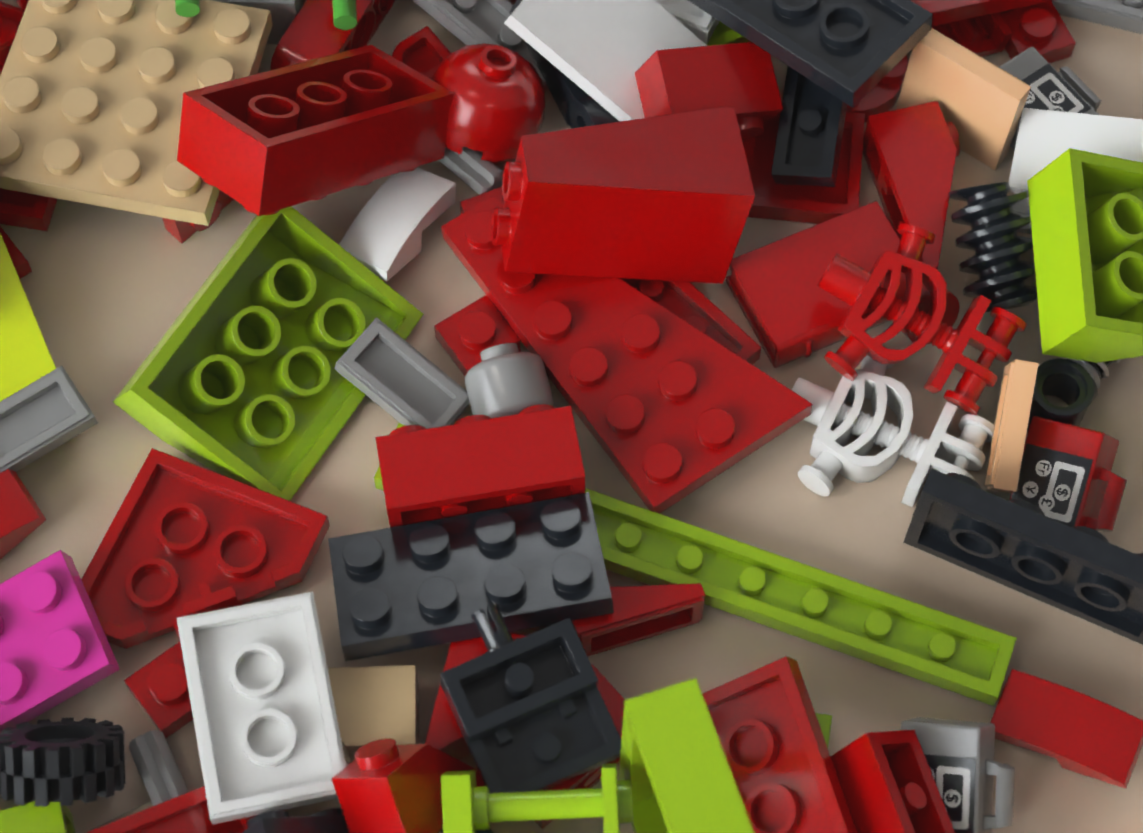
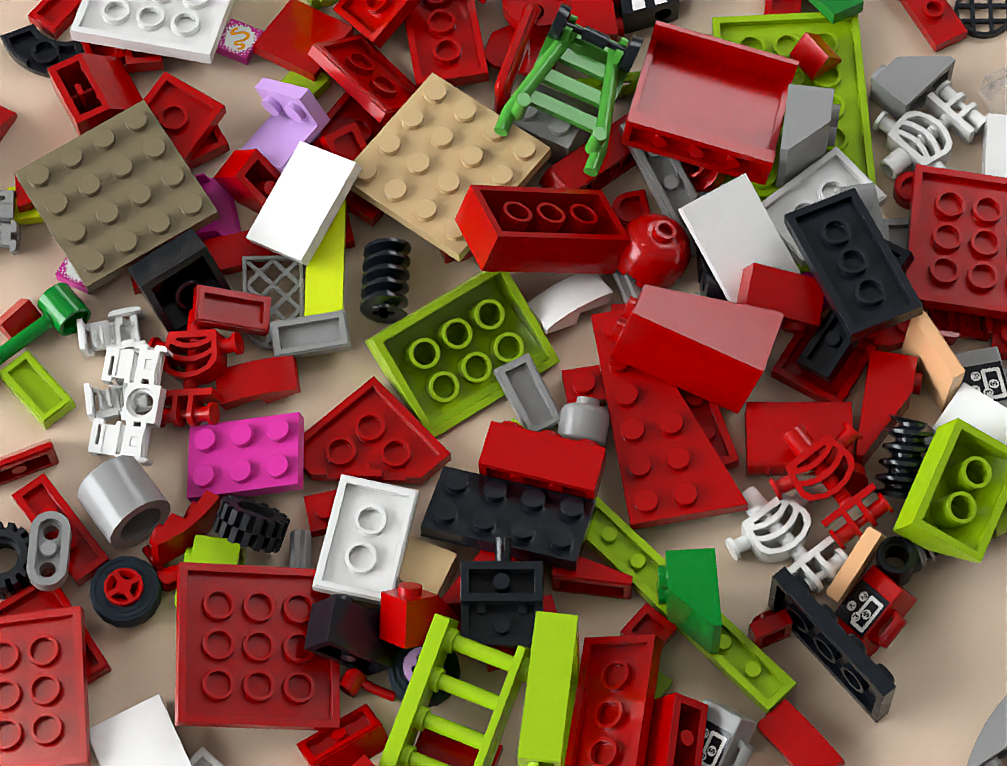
camera: 30 degrees right, 0 degrees up
(104, 299) = (385, 280): none -> black piece
(754, 646) = (650, 621): none -> red plate
(818, 572) = (691, 595): none -> green slope
(934, 571) = (770, 628): none -> red plate

